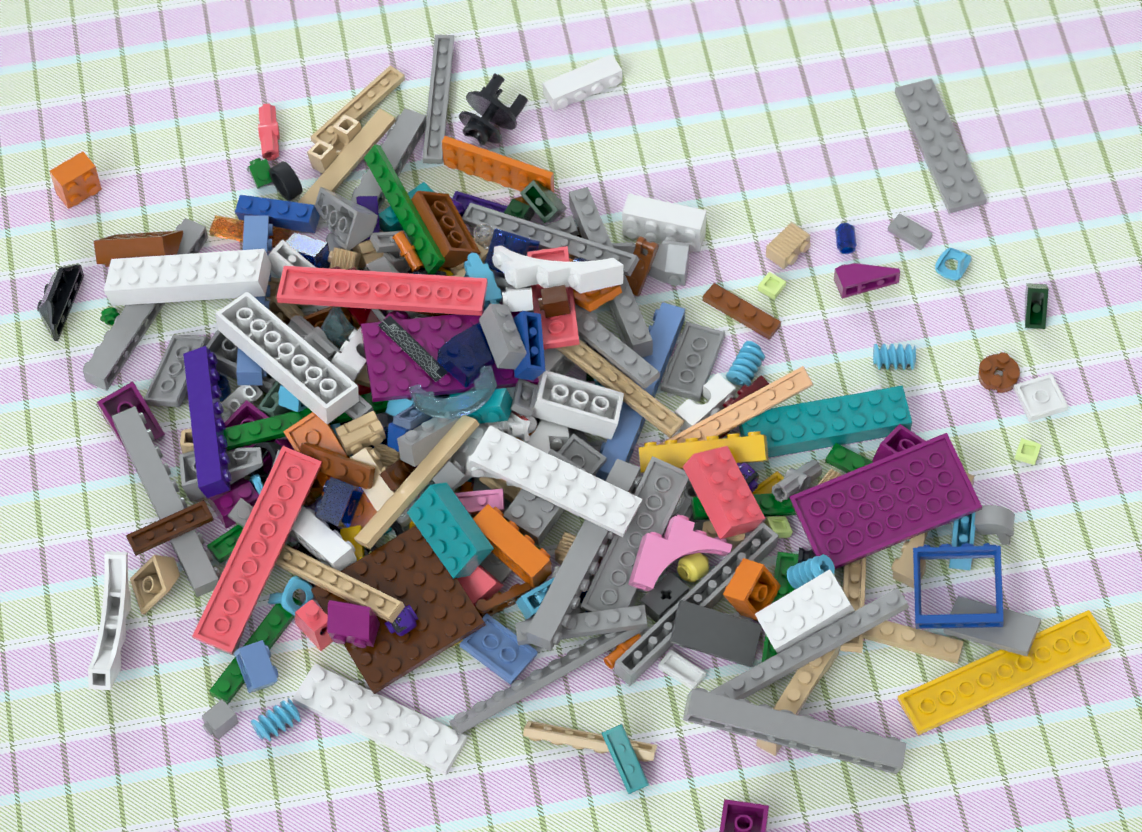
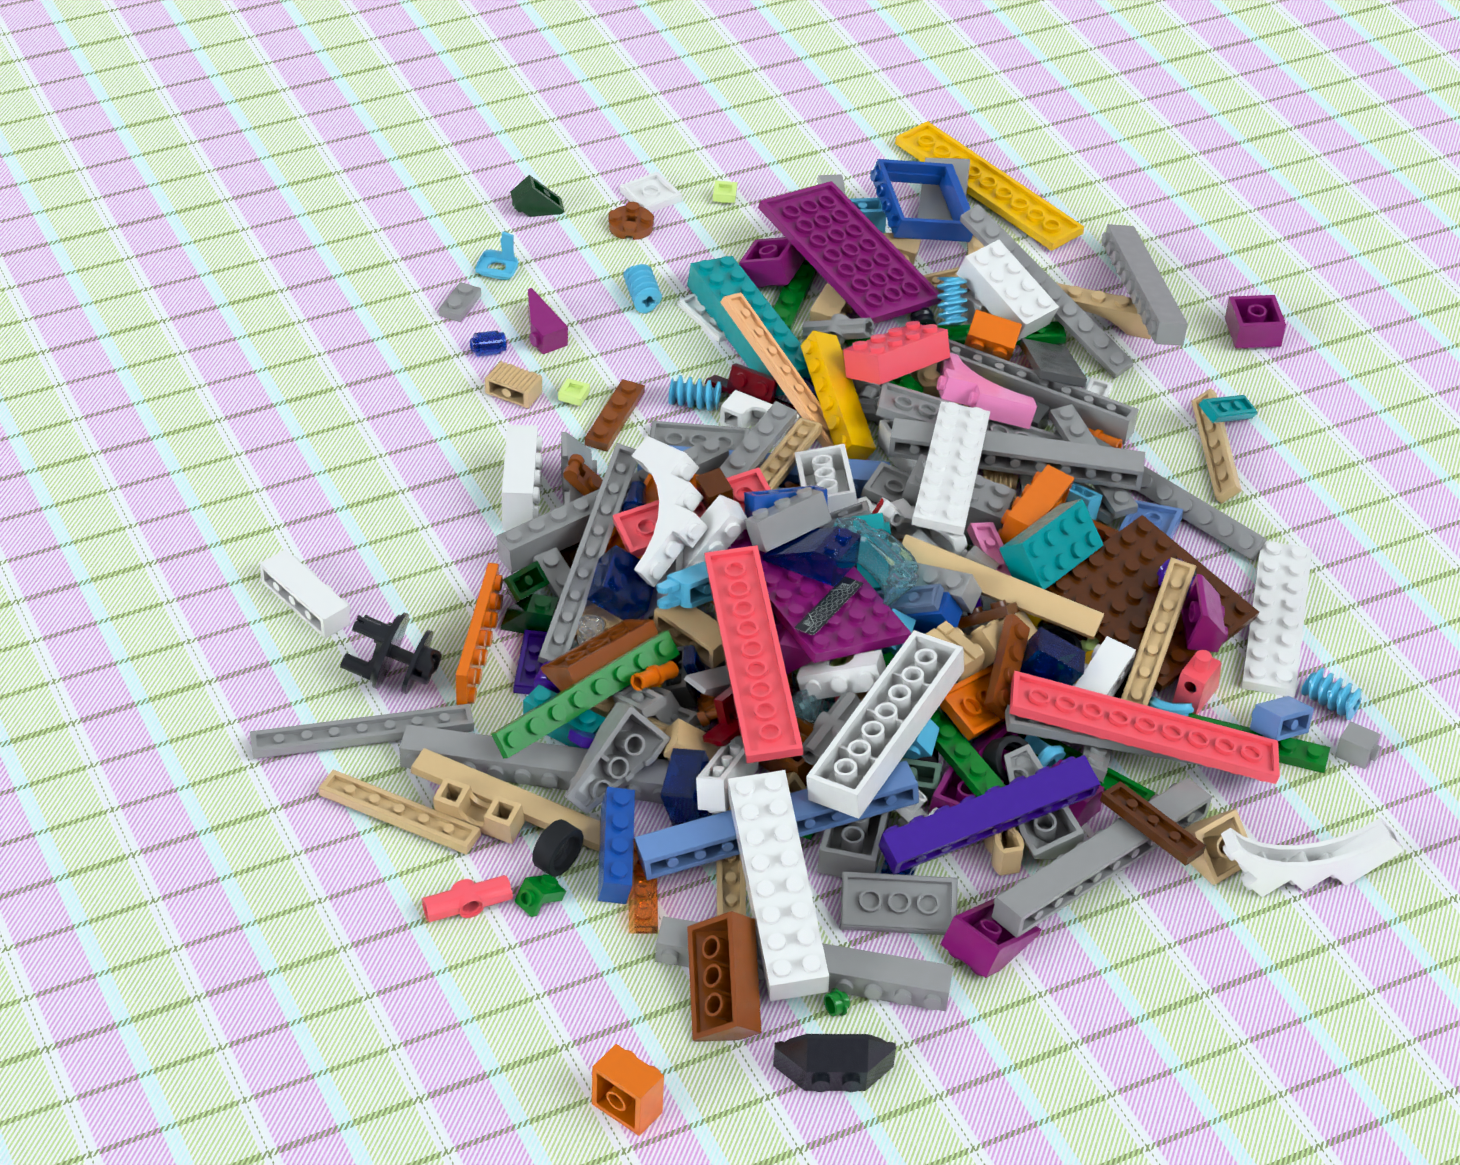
camera: 110 degrees left, 15 degrees down
(940, 146) = (326, 292): light grey plate -> none

